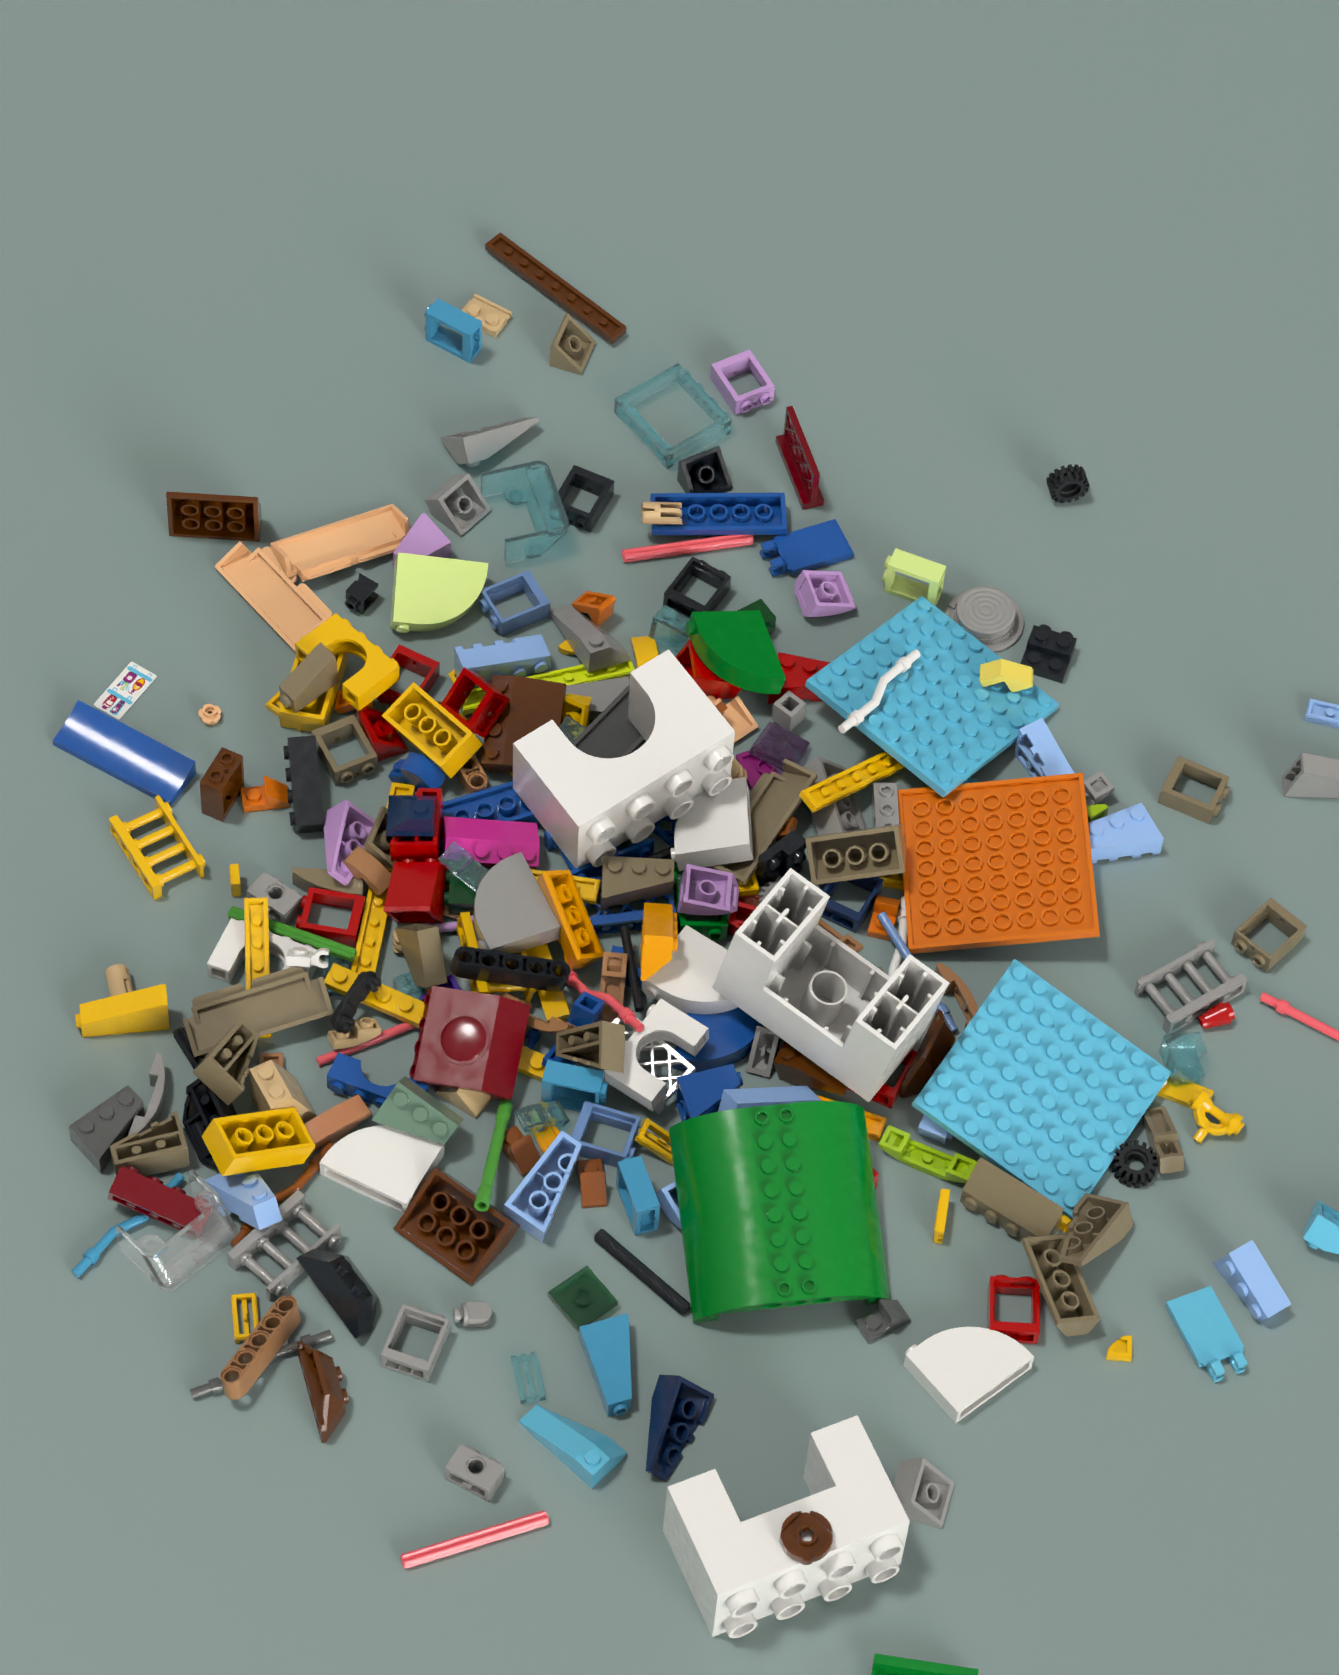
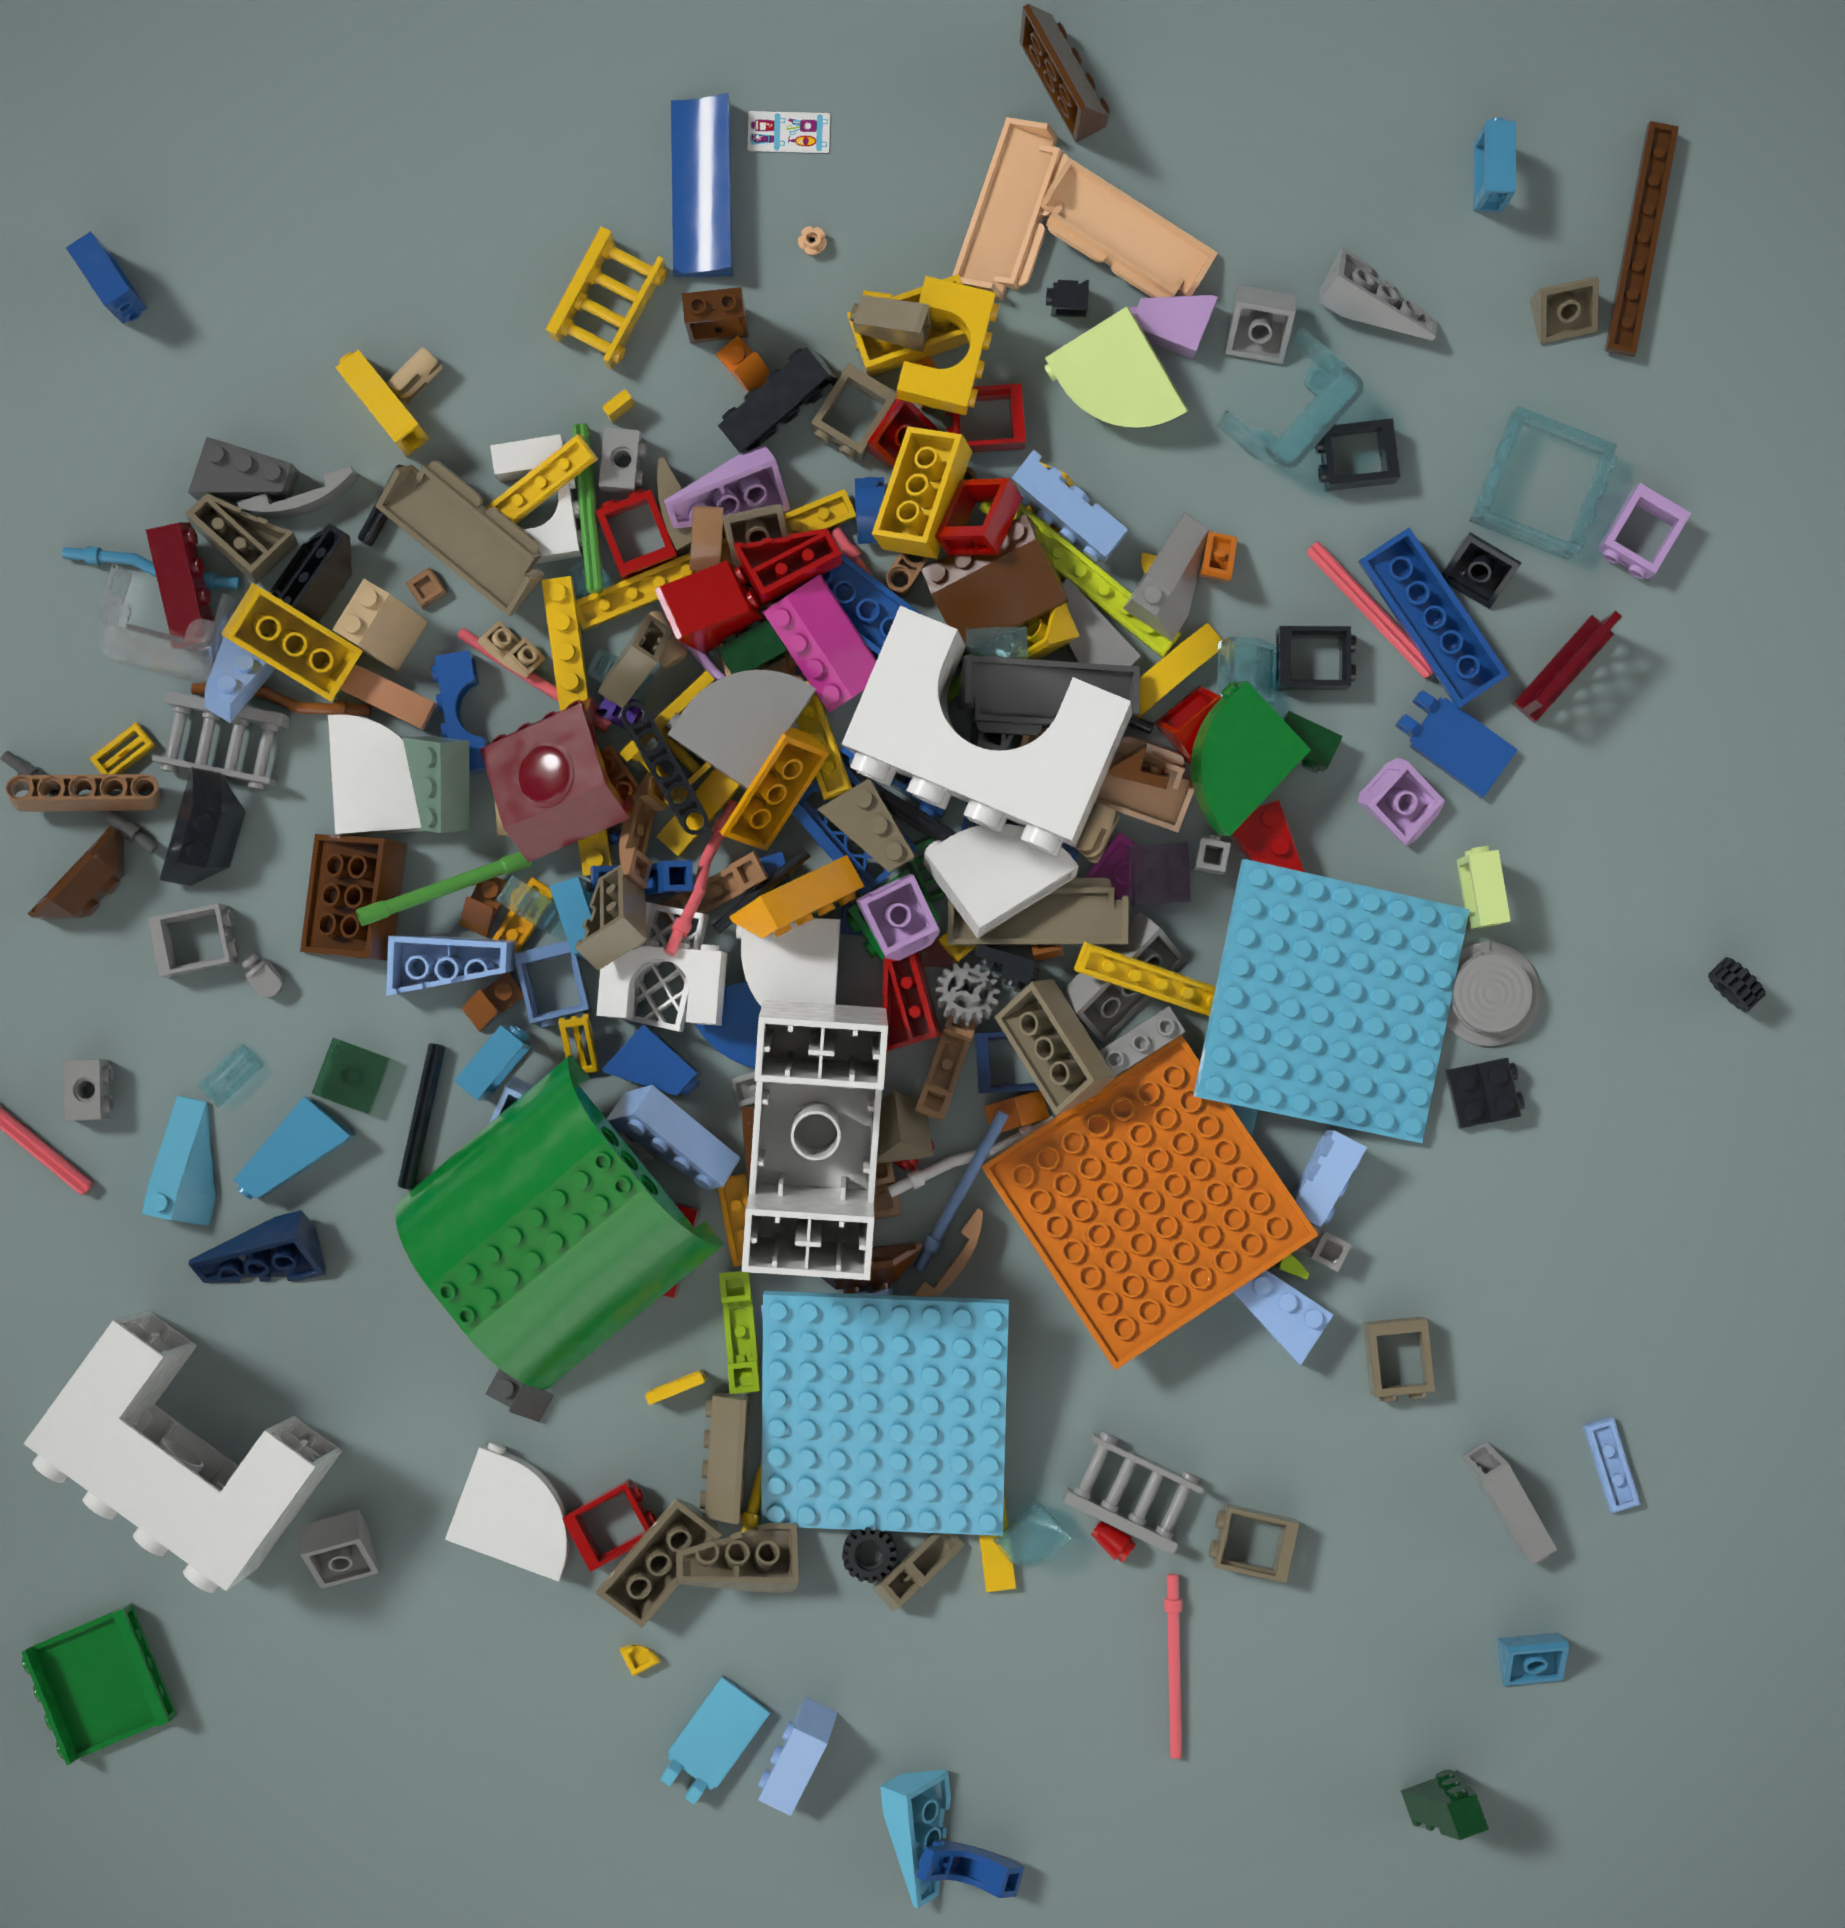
camera: 60 degrees right, 30 degrees up
(228, 1062) = (368, 548): dark tan wedge -> none
(301, 957) = (551, 543): white plate -> none
(343, 1016) = (555, 627): black piece -> none
(411, 815) = (783, 544): dark blue slope -> none
(463, 866) = (765, 639): clear light blue slope -> none
(492, 315) = (1550, 185): tan plate -> none
(509, 587) = (1180, 449): medium blue window -> none
(661, 513) = (1383, 546): tan arm -> none
(806, 1551) = (151, 1490): reddish brown plate -> none
(857, 716) = (1225, 945): white bar -> none
(1013, 674) = (1411, 1070): light yellow slope -> none
(1228, 1124) = (981, 1629): yellow piece -> none

